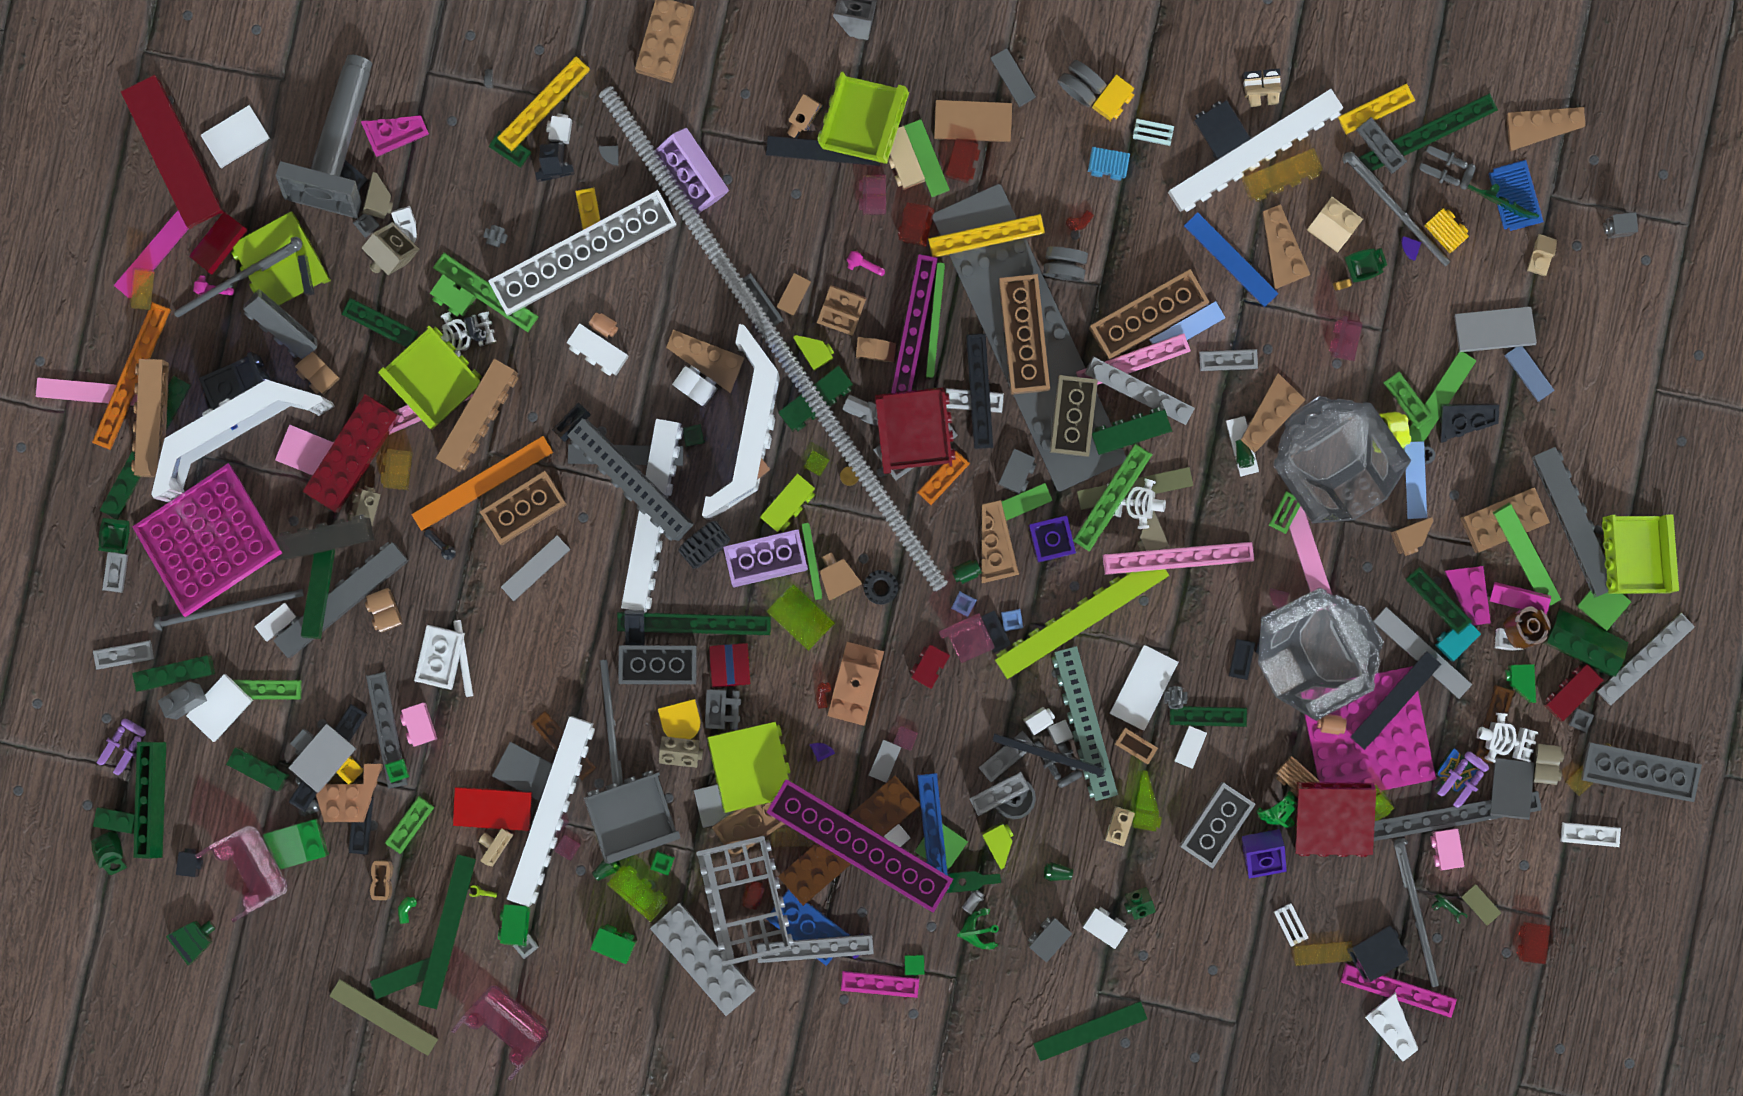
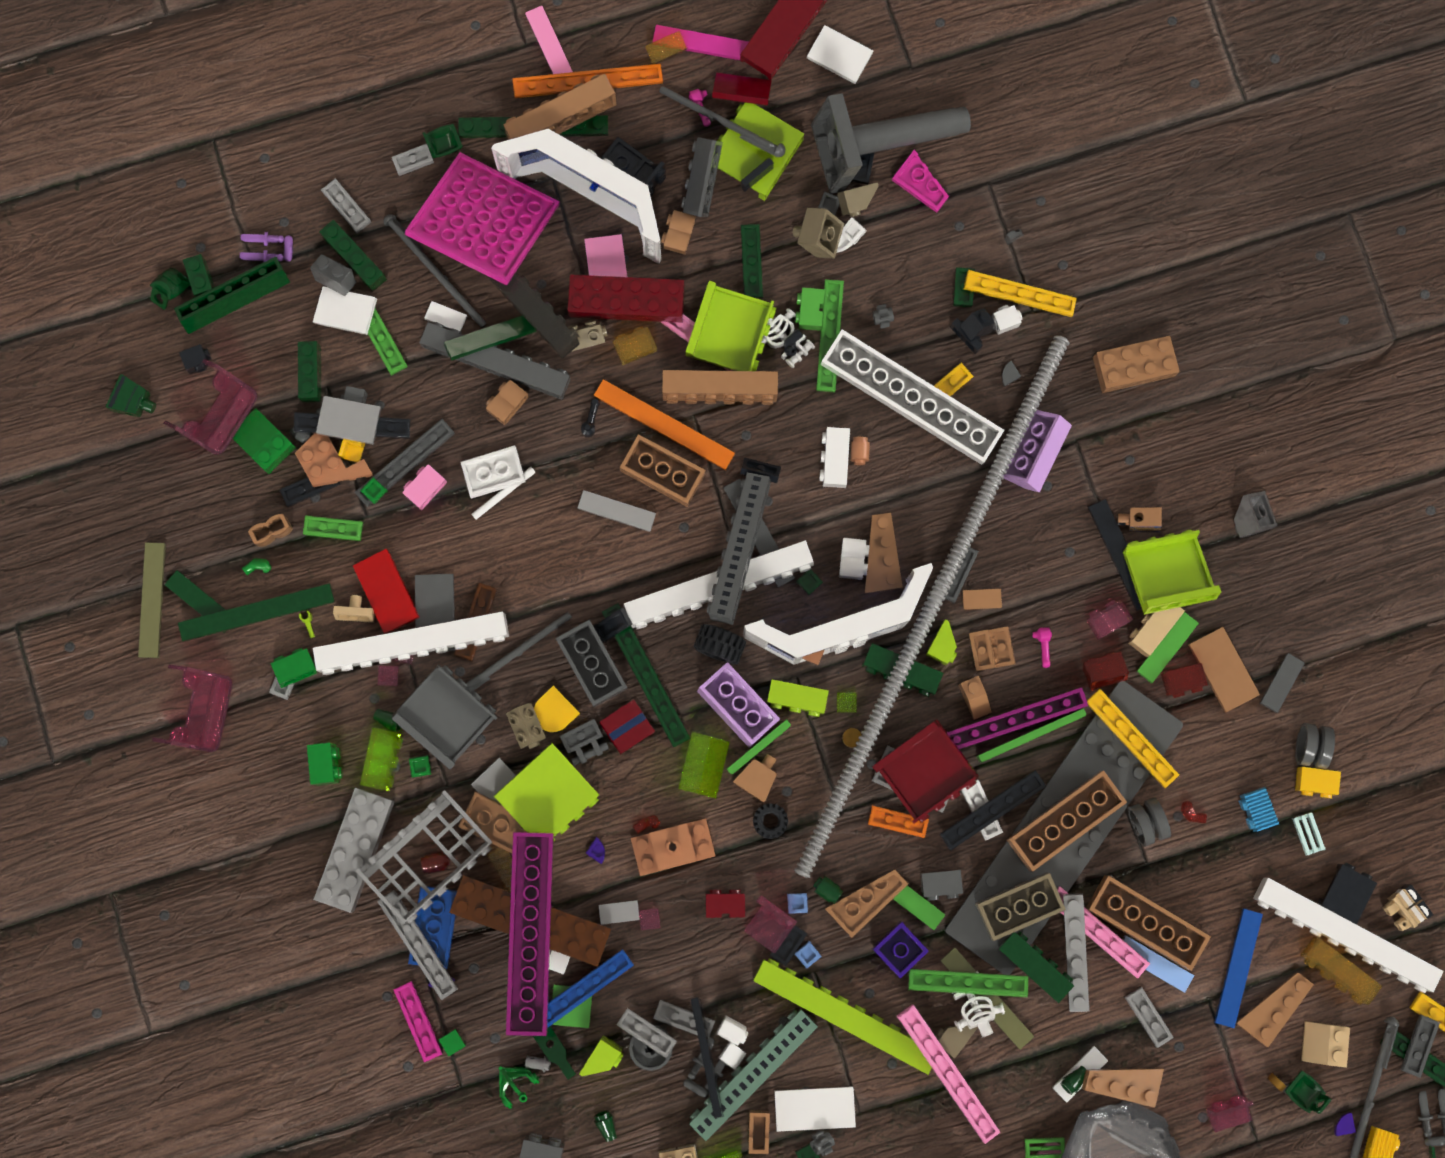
camera: 55 degrees right, 5 degrees down
(861, 409) = (916, 713): light grey piece -> none

